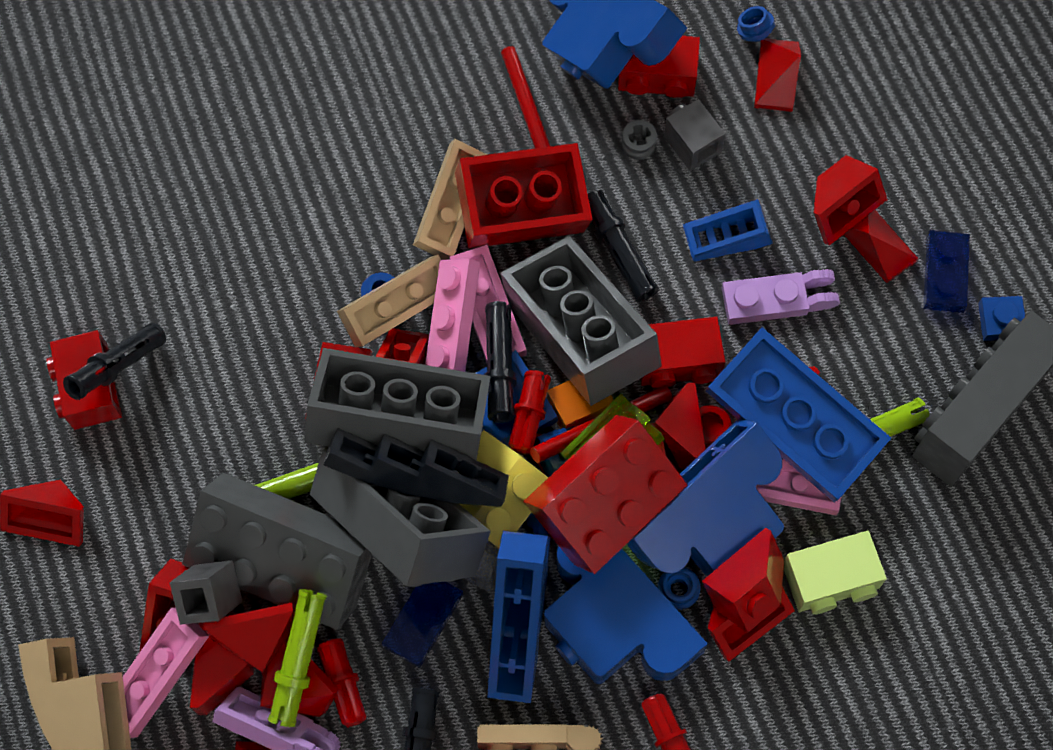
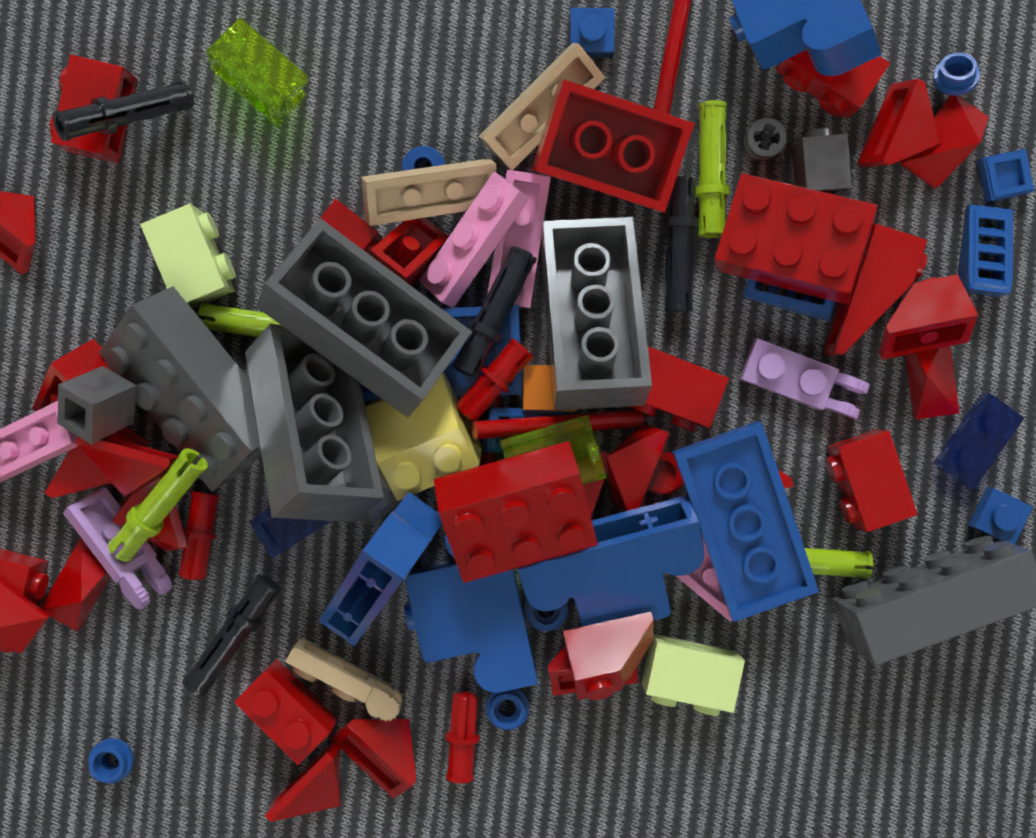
camera: 25 degrees right, 20 degrees up
(208, 286) = (257, 71): none -> clear neon green hinge
(214, 448) = (189, 256): none -> yellowish green brick
(430, 474) = (344, 398): black slope -> none
(460, 126) = (593, 30): none -> blue plate
(619, 191) = (712, 169): none -> lime pin
(698, 678) = (510, 720): none -> blue plate
(705, 190) = (795, 238): none -> red brick
(736, 77) = (901, 127): none -> red slope
(787, 185) = (886, 272): none -> red slope
(838, 75) = (1005, 175): none -> blue tile
(880, 341) = (870, 480): none -> red brick
(884, 147) = (1002, 265): none -> blue slope

